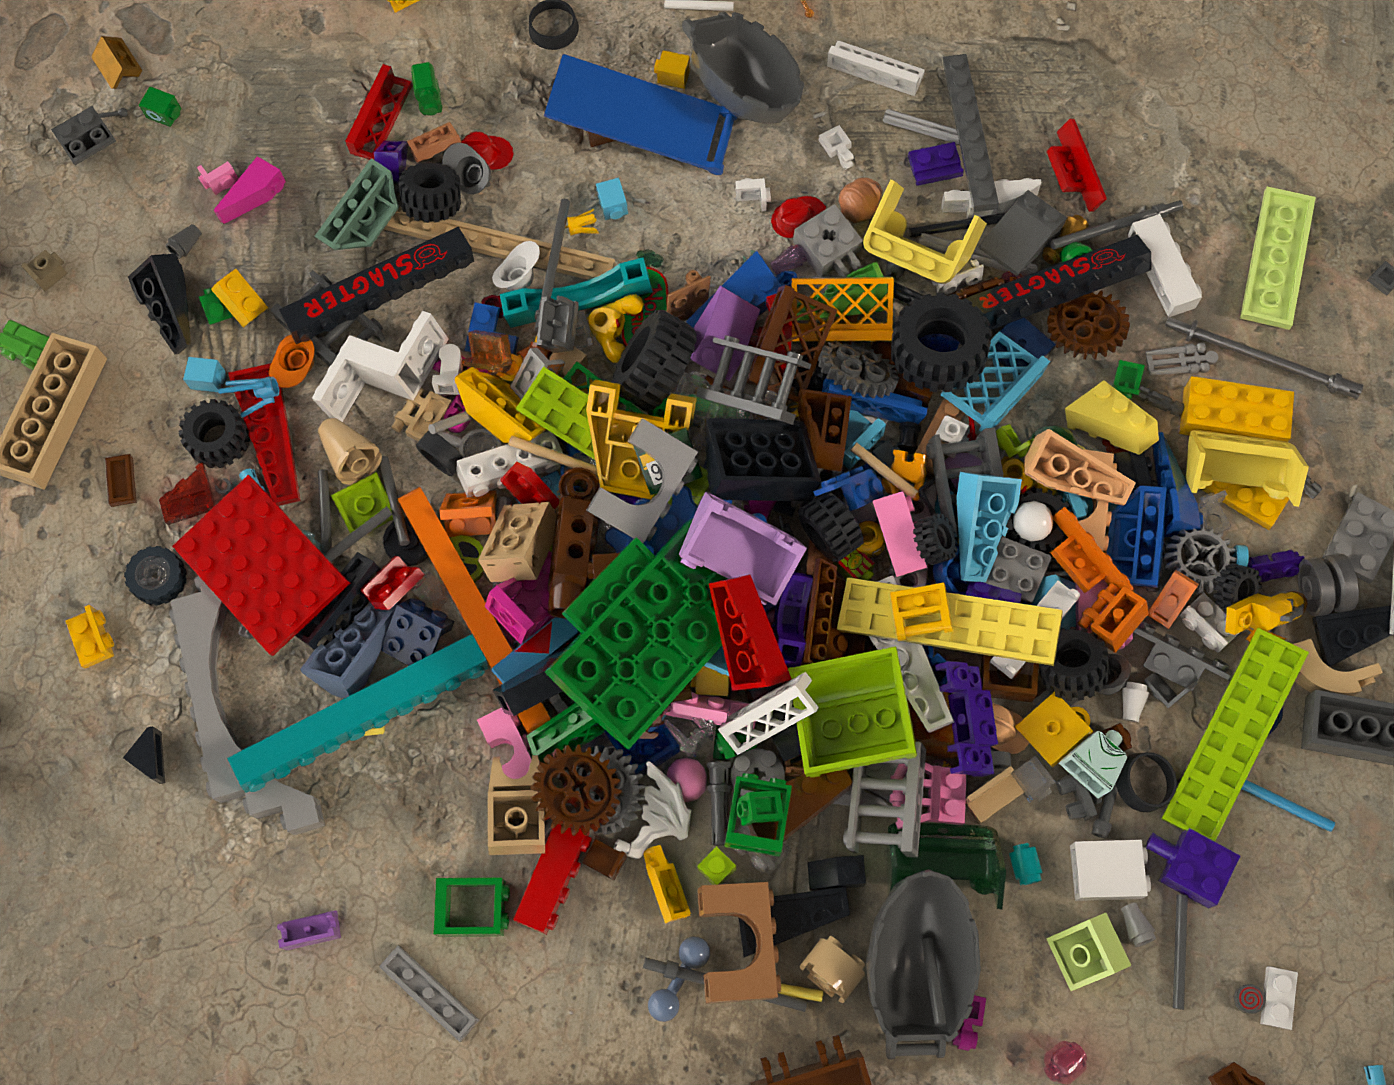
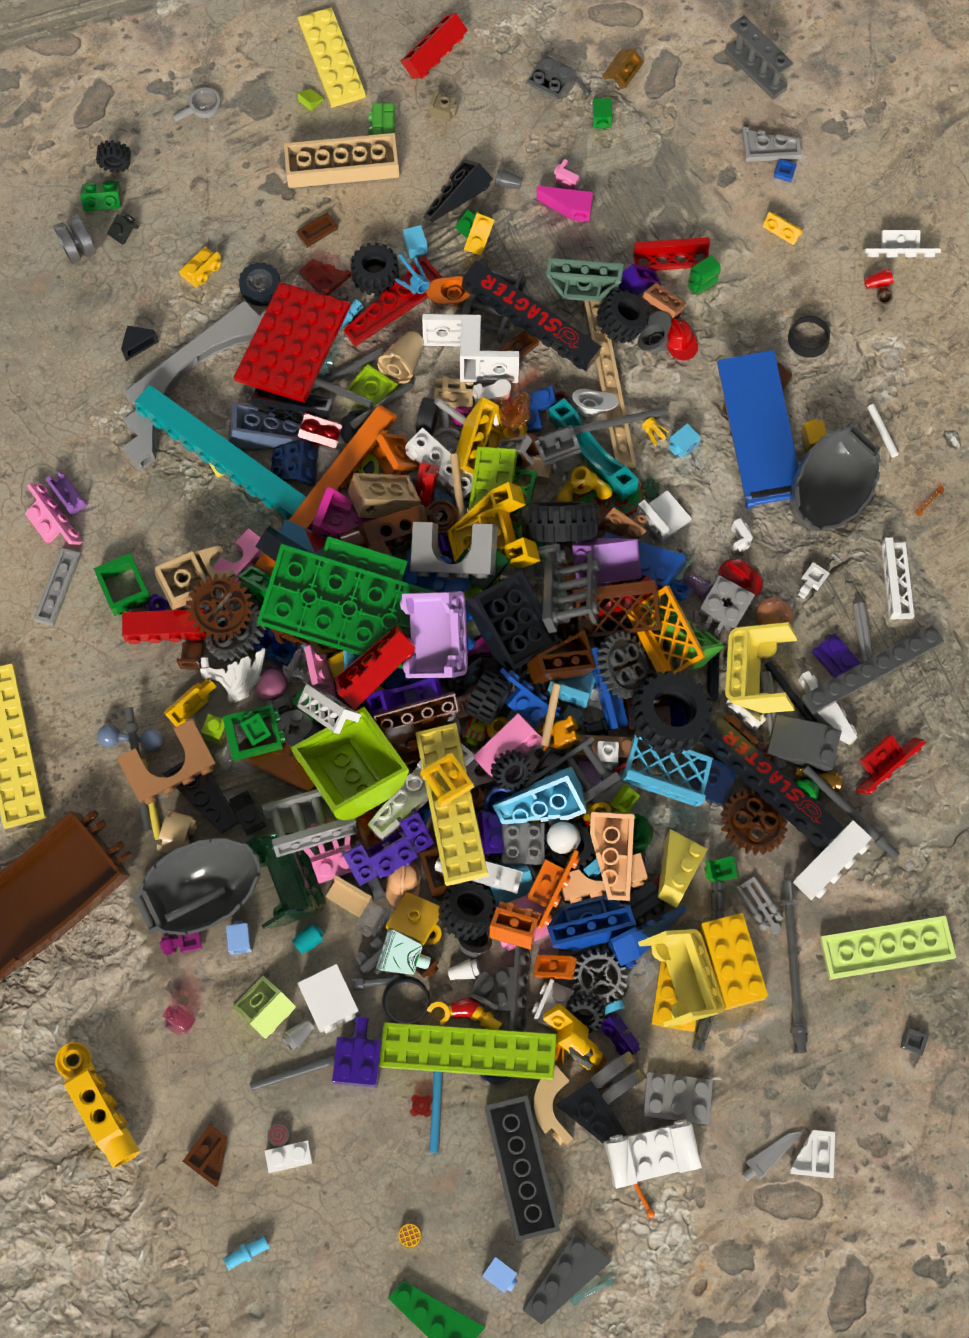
camera: 60 degrees right, 0 degrees up
(330, 967) = (48, 518): none -> bright pink bracket
(401, 317) = (523, 343): none -> reddish brown plate
(520, 868) = (155, 599): none -> dark purple plate
(689, 254) = (663, 515): none -> white bracket
(995, 947) = (238, 938): none -> light blue brick
(1181, 717) = (468, 1009): none -> piece
(1266, 817) = (416, 1101): none -> clear red plate

